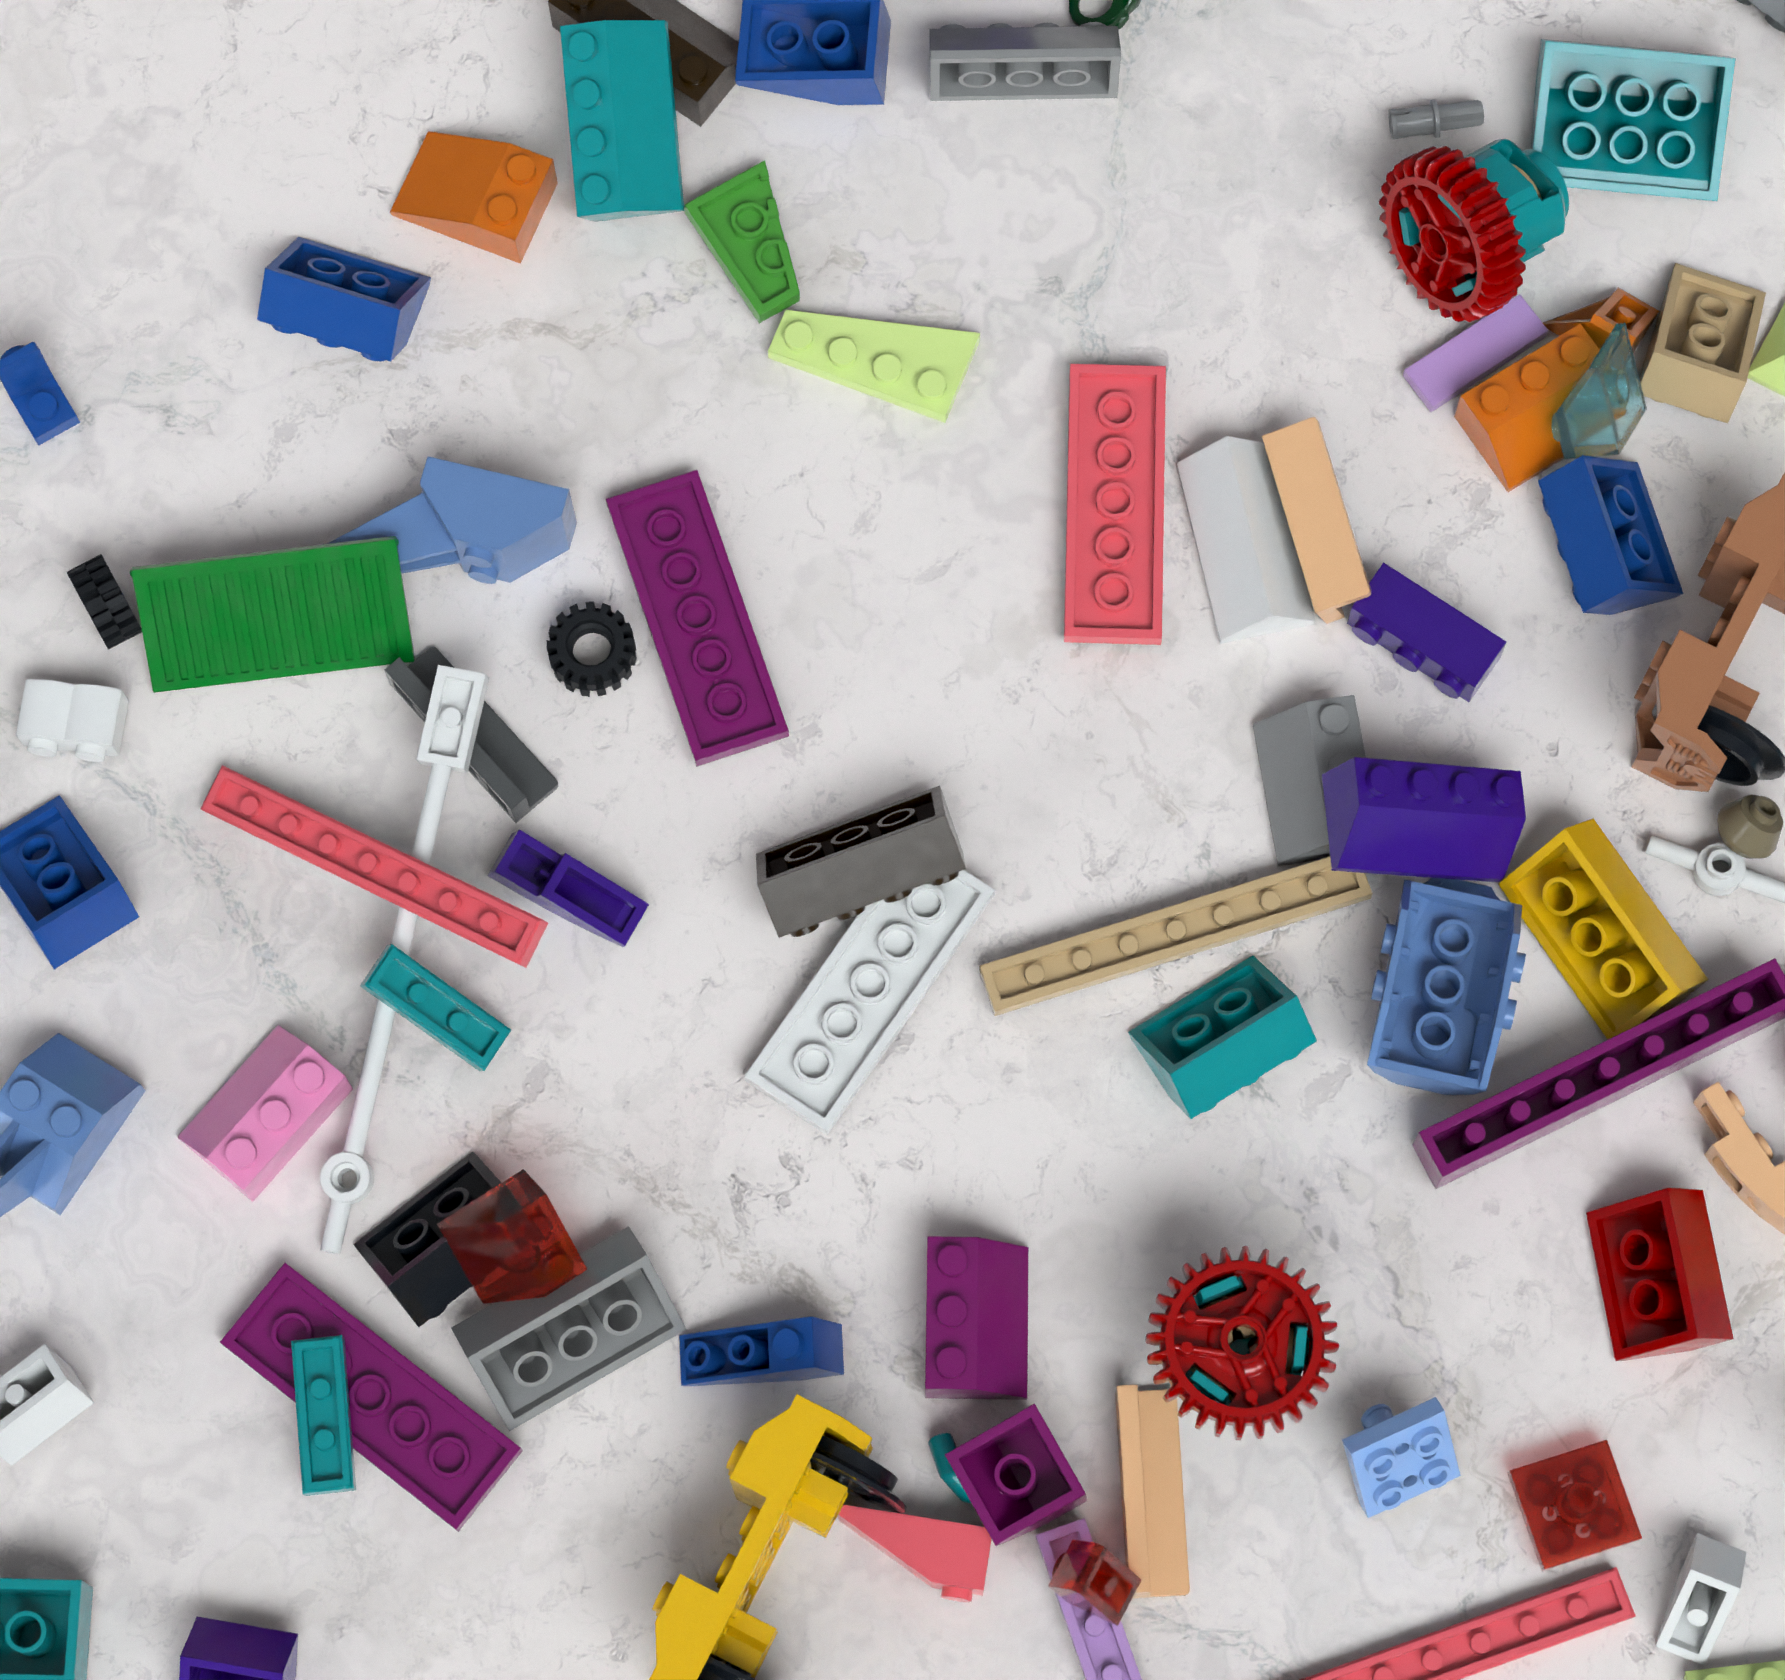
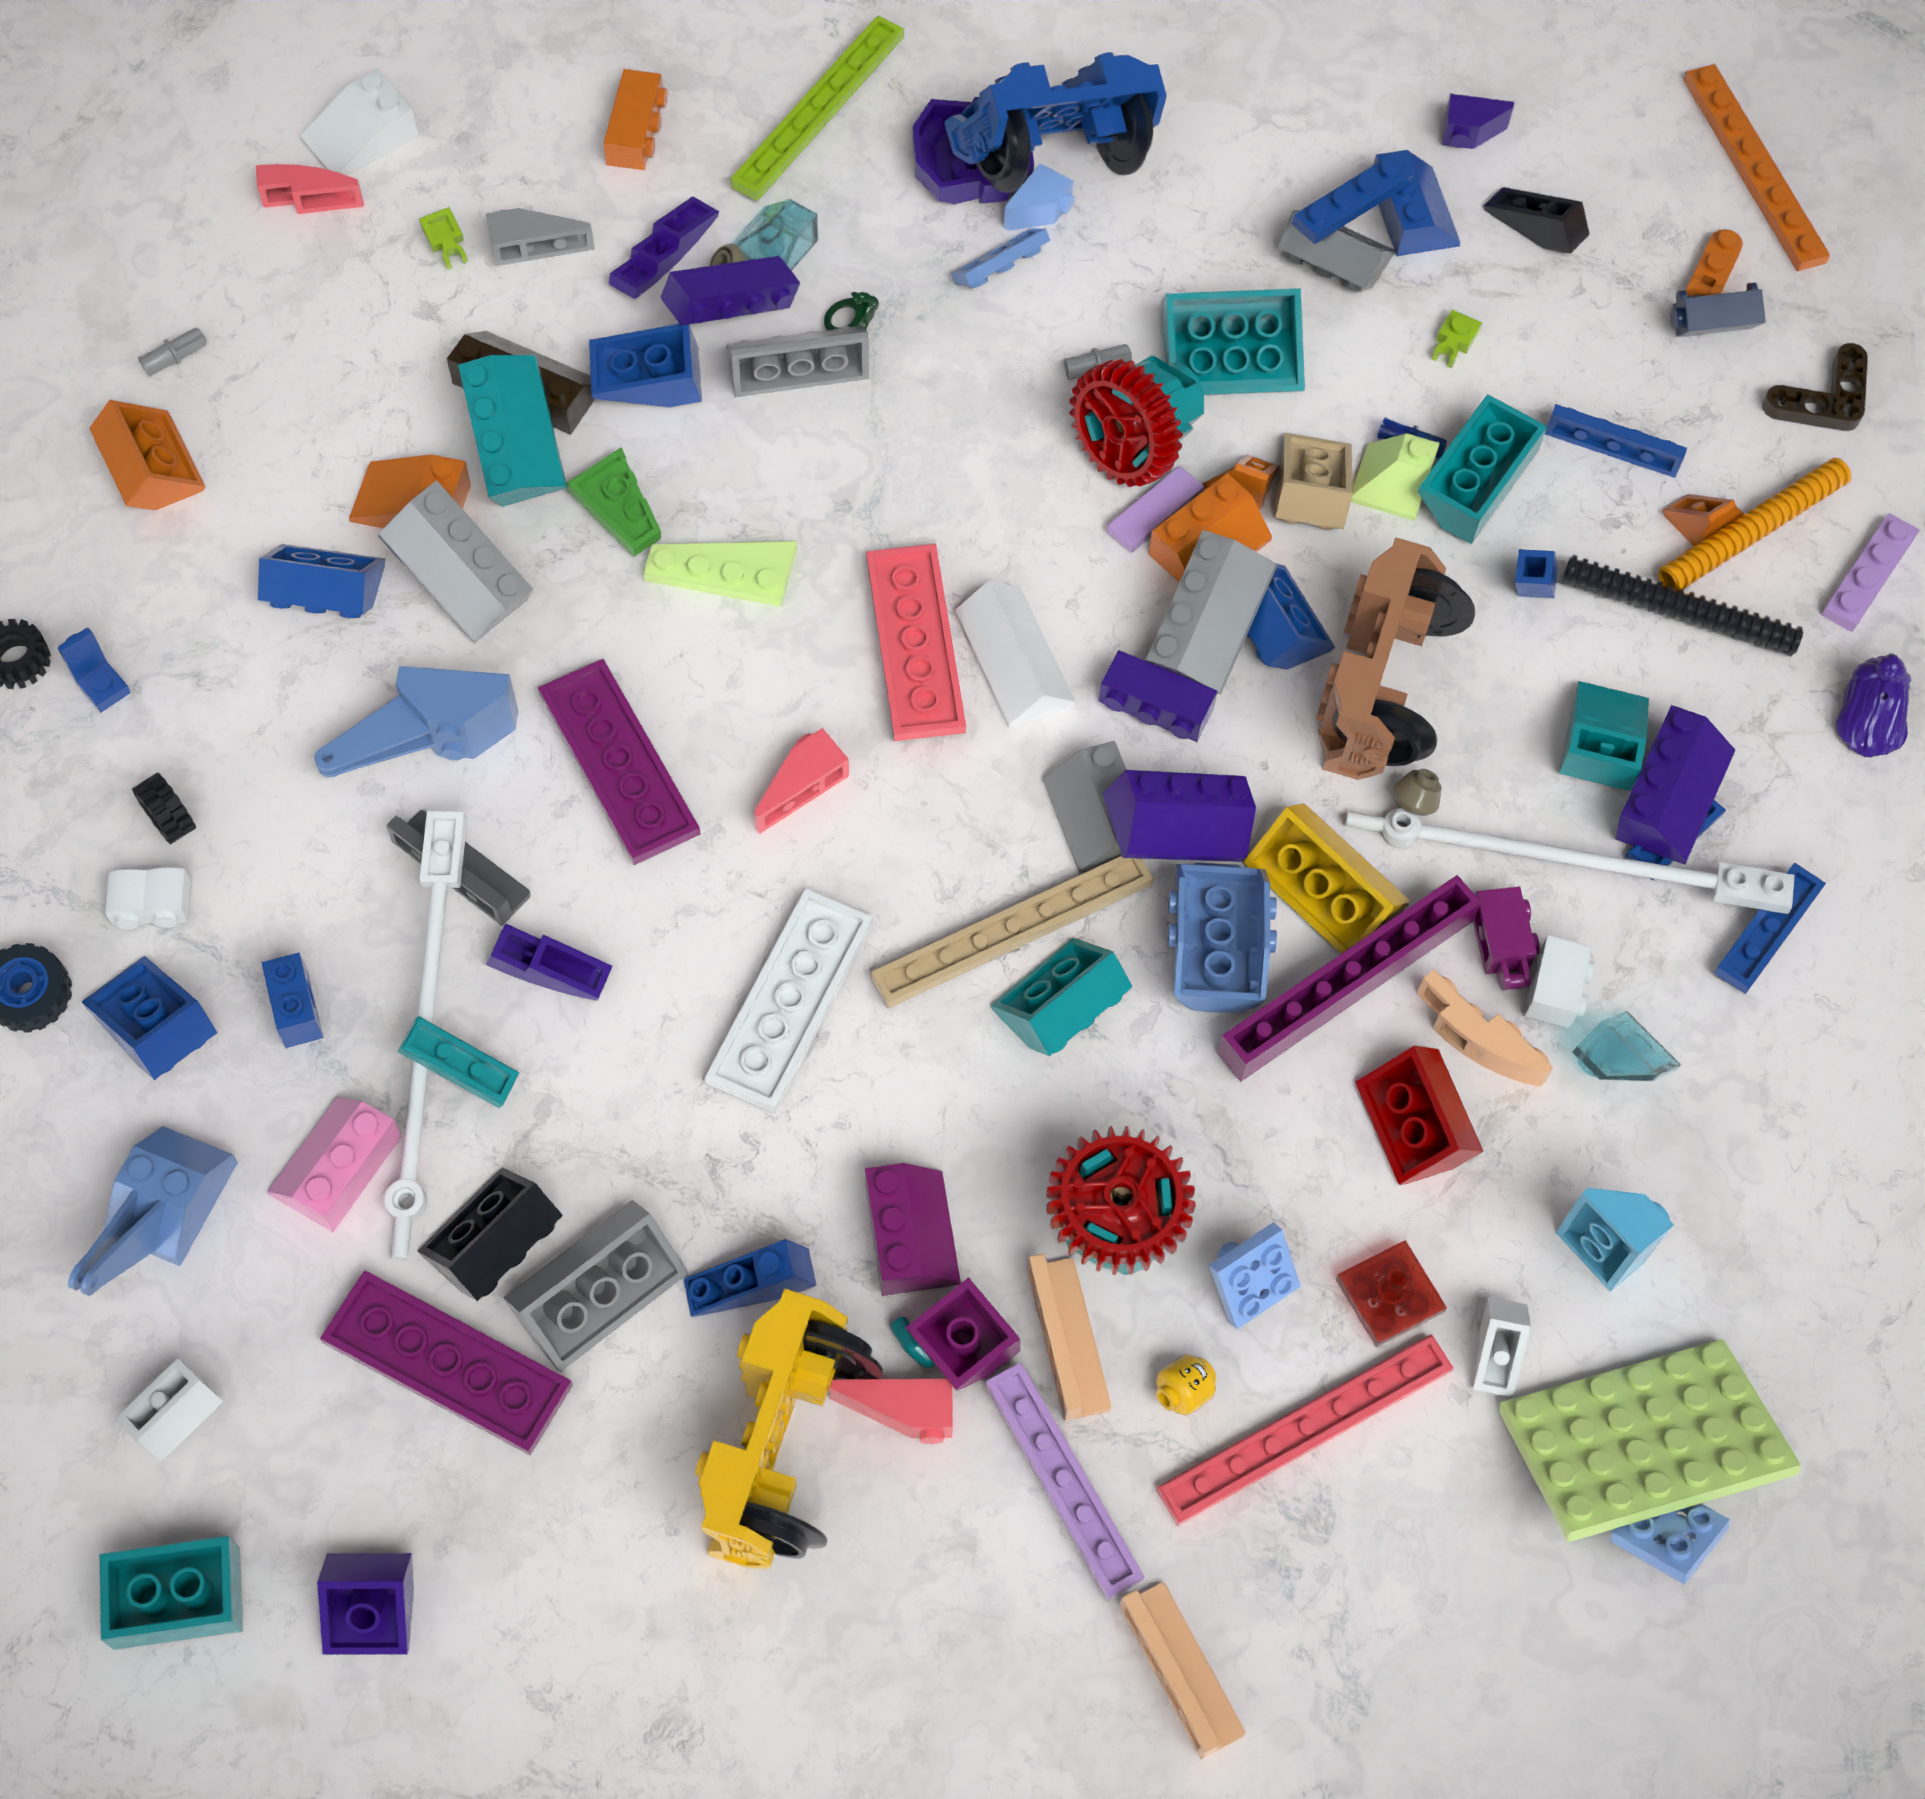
camera: 15 degrees left, 10 degrees down
(134, 84) = (145, 455): none -> orange slope
(237, 889) = (292, 1000): none -> blue brick
(273, 614) = (294, 798): green window -> none
(323, 1415) = (410, 1380): teal tile -> none
(375, 866) = (399, 964): coral tile -> none
(512, 1243) = (543, 1221): clear red slope -> none
(520, 308) = (455, 562): none -> light grey slope
(583, 622) = (538, 775): black tyre -> none
(859, 863) = (769, 910): slope -> none
(938, 674) = (806, 773): none -> coral slope
(1094, 1580) = (1038, 1401): clear red slope -> none
(1288, 1581) = (1186, 1384): none -> yellow head
(1317, 518) = (1065, 627): light nougat panel -> none
(1518, 529) = (1212, 610): none -> light grey slope
(1602, 403) = (1255, 516): clear light blue slope -> none

